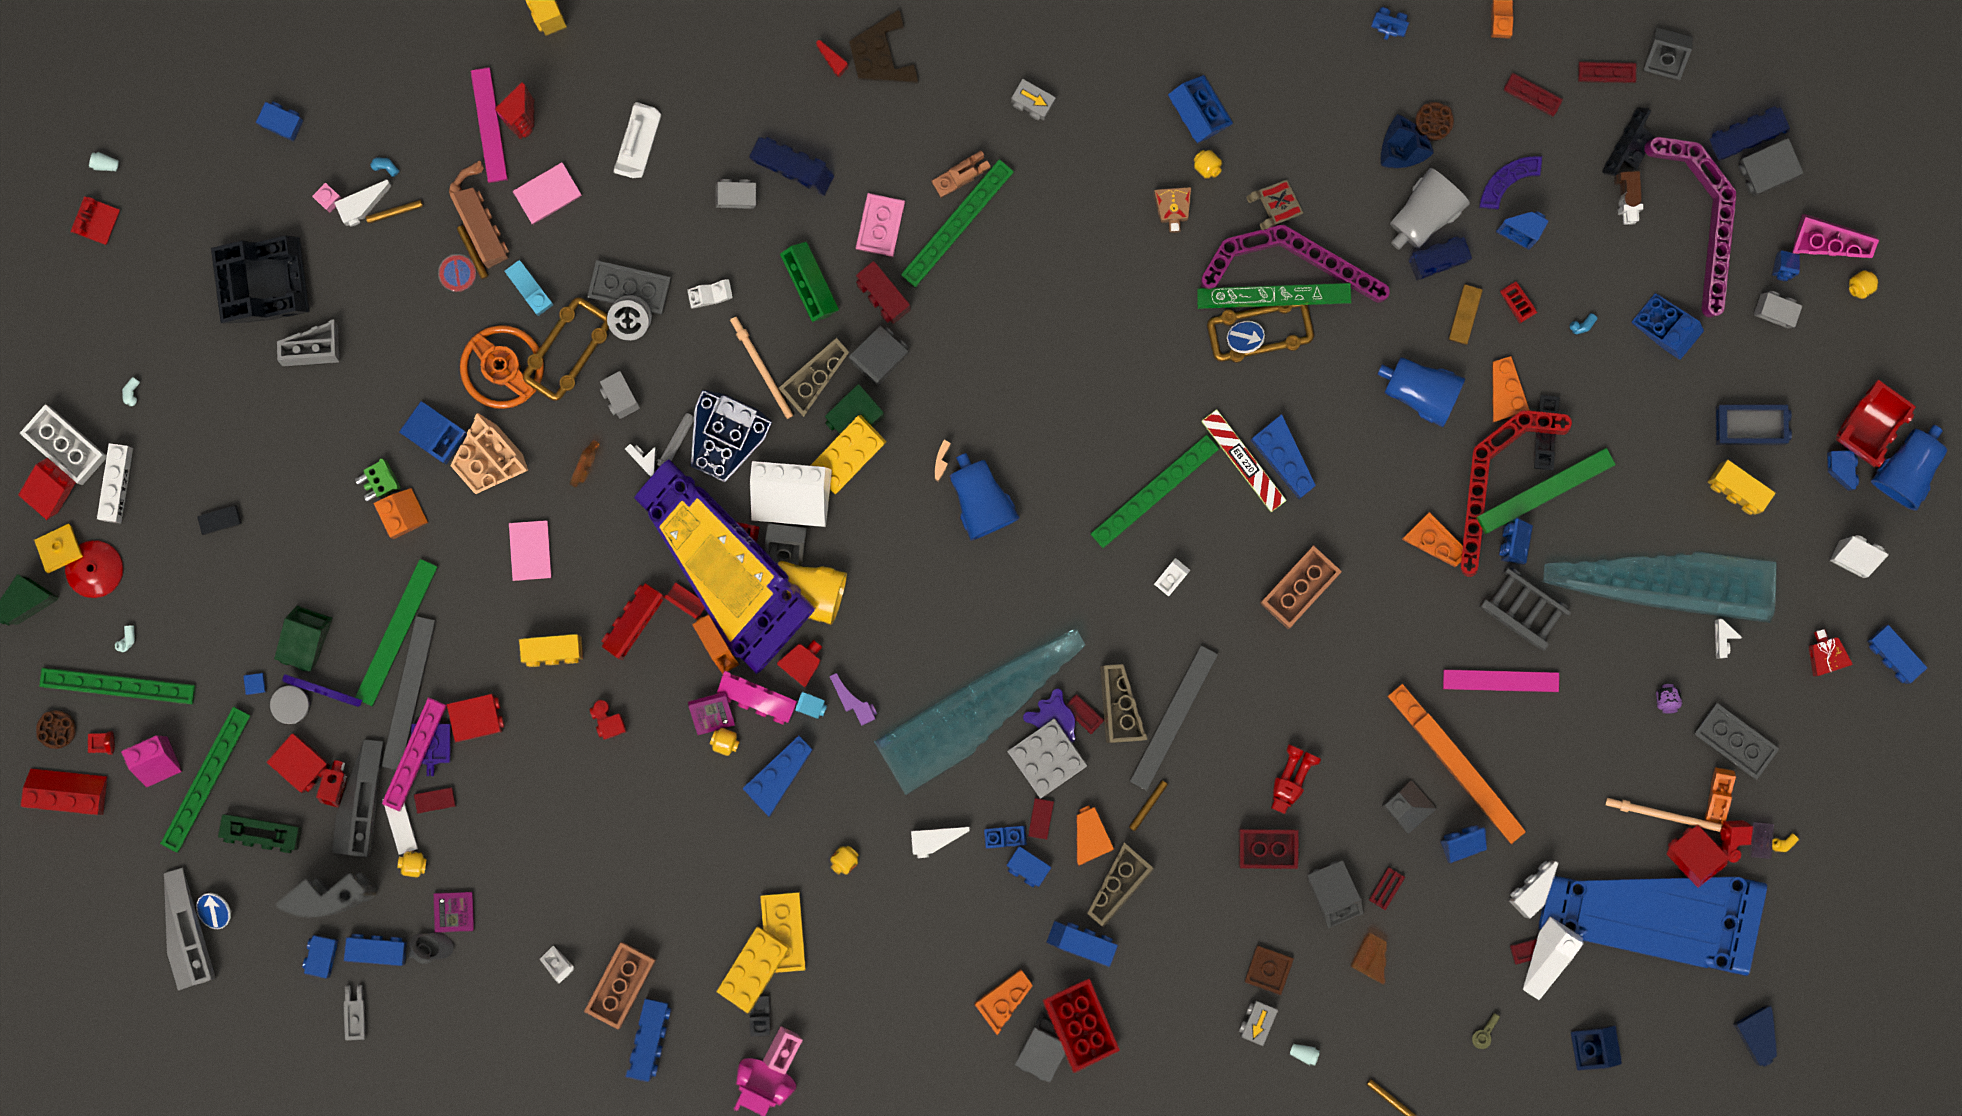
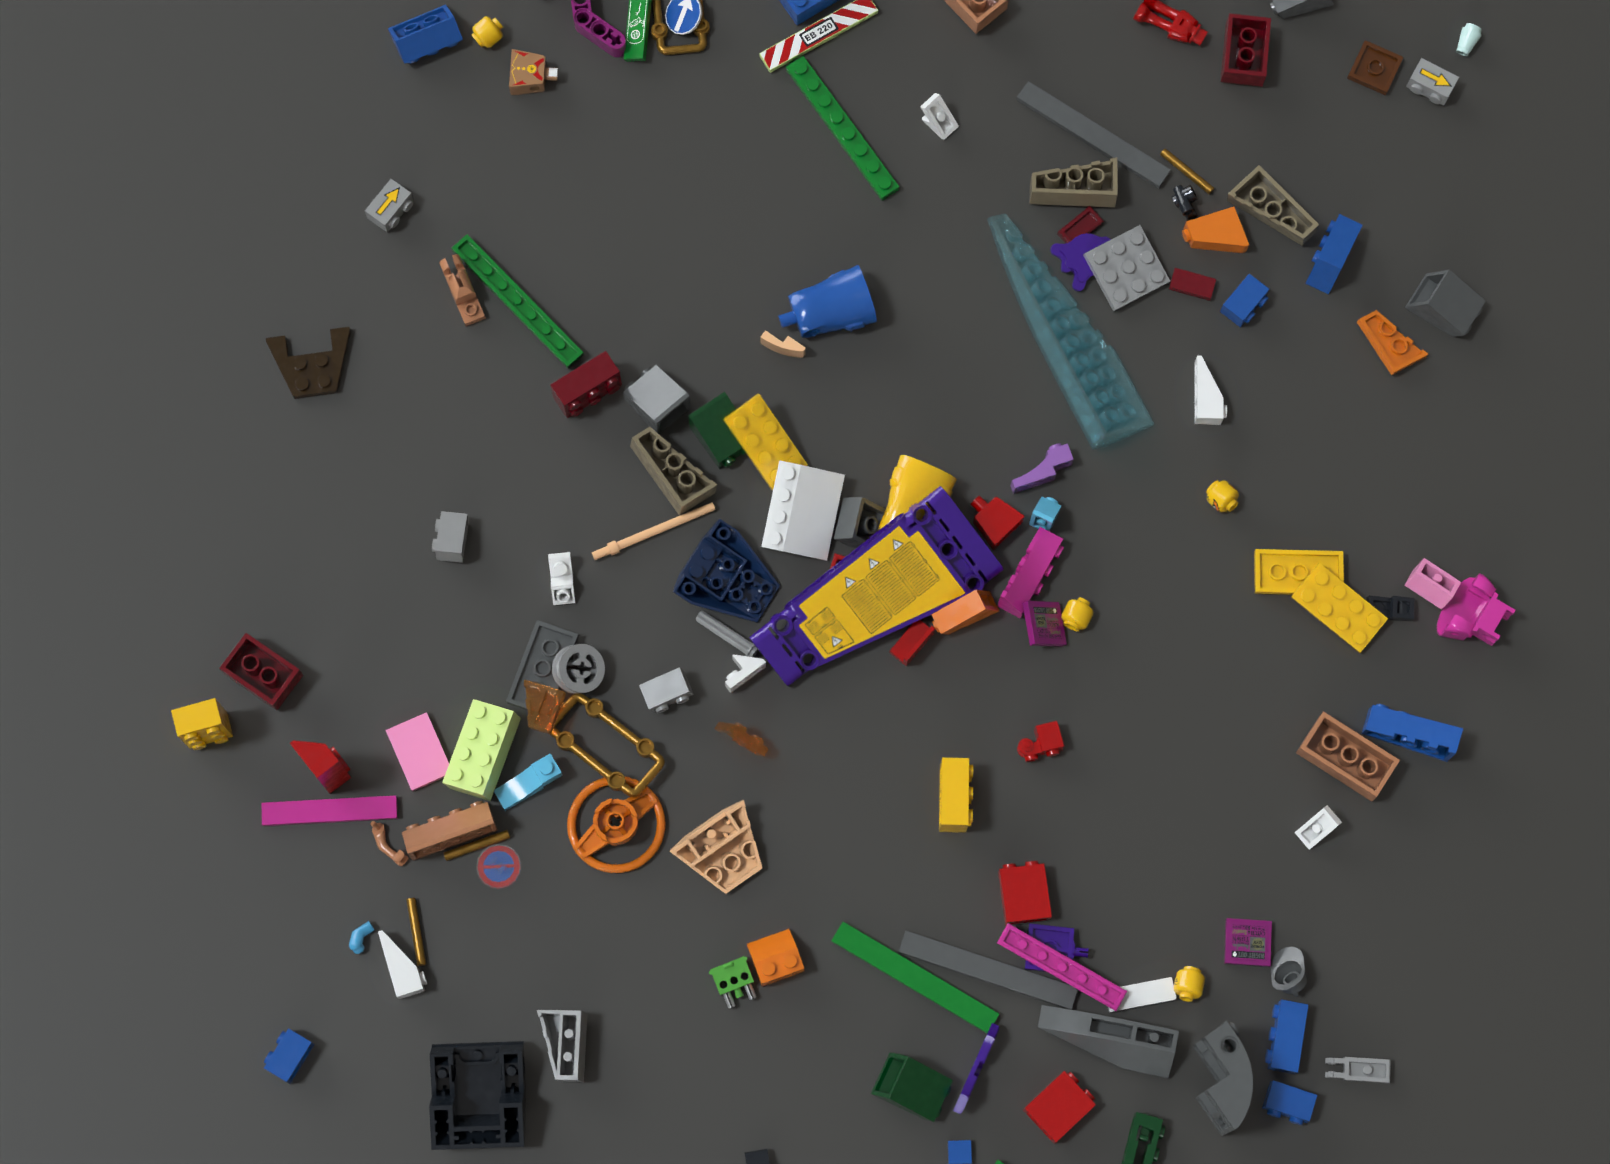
camera: 85 degrees left, 10 degrees down
(289, 704) = (988, 1111): light grey tile -> none
(326, 197) = (389, 1006): bright pink brick -> none
(329, 792) = (1099, 1068): red torso -> none
(433, 432) = (684, 909): blue slope -> none
(434, 800) = (1116, 951): dark red tile -> none
(530, 550) = (835, 812): bright pink tile -> none
(550, 245) = (481, 750): none -> yellowish green brick
(593, 291) = (542, 706): none -> clear orange wing
(599, 50) = (261, 671): none -> dark red brick
(633, 621) = (930, 700): red slope -> none
(637, 141) = (372, 643): white piece -> none
(773, 781) = (1123, 559): blue wedge -> none
(792, 164) = (425, 471): clear blue wedge -> none
(809, 281) = (563, 465): green brick -> none
(837, 64) = (311, 414): red slope -> none
(880, 225) = (507, 385): bright pink tile -> none
(1005, 837) = (1209, 323): blue slope -> none
(1081, 1025) = (1425, 256): red slope -> none
(1119, 804) = (1183, 198): none -> black plate

